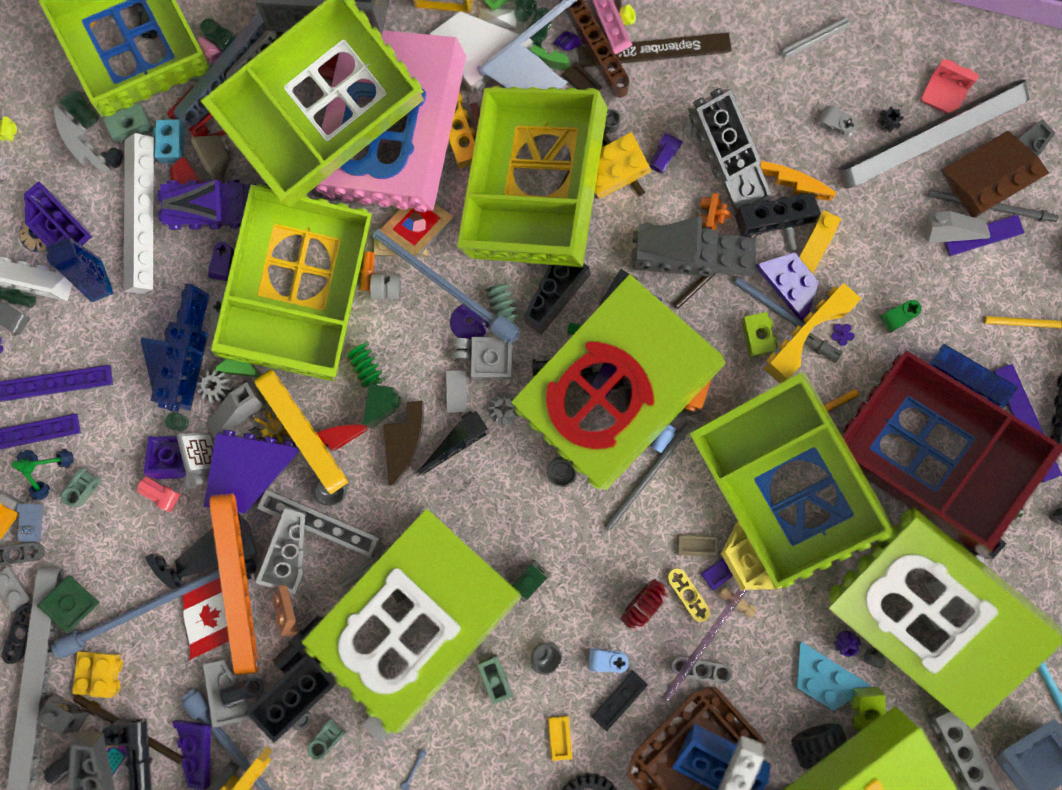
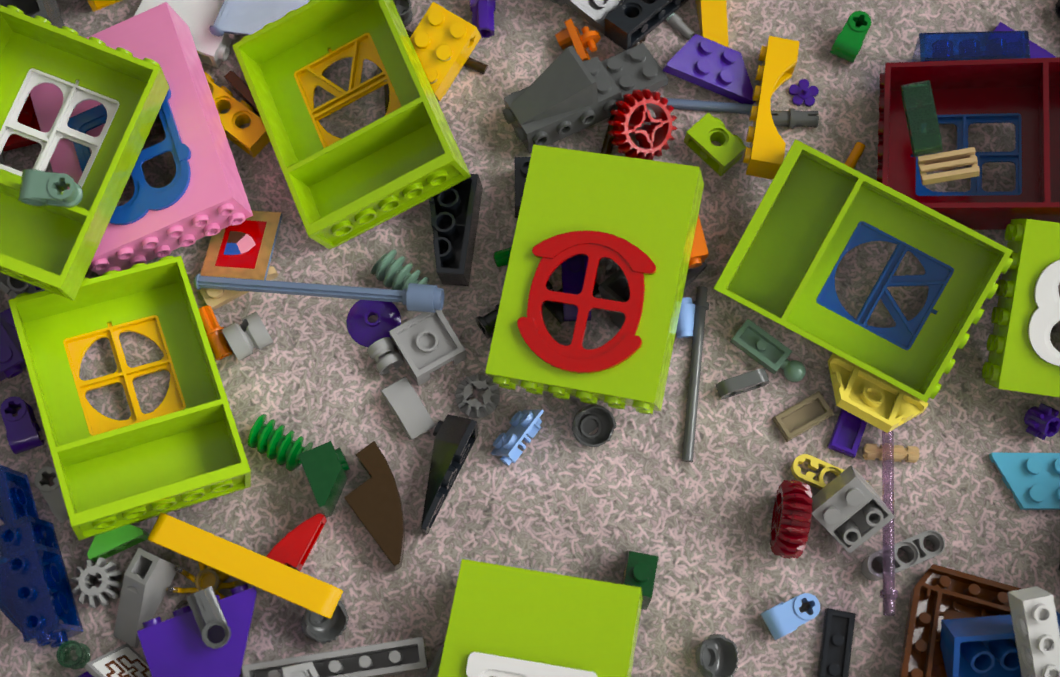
camera: 35 degrees left, 10 degrees down
(261, 449) = (207, 614): none -> dark grey piece
(304, 133) = (45, 189): none -> sand green piece
(519, 444) = (524, 424): none -> light blue hinge
(673, 502) = (742, 383): none -> dark grey beam
(685, 621) = (850, 509): none -> light grey slope
(702, 491) = (767, 351): none -> sand green plate
(725, 302) = (653, 135): none -> red gear
(899, 440) = (948, 161): none -> tan tile
(900, 404) = (921, 118): none -> clear green beam

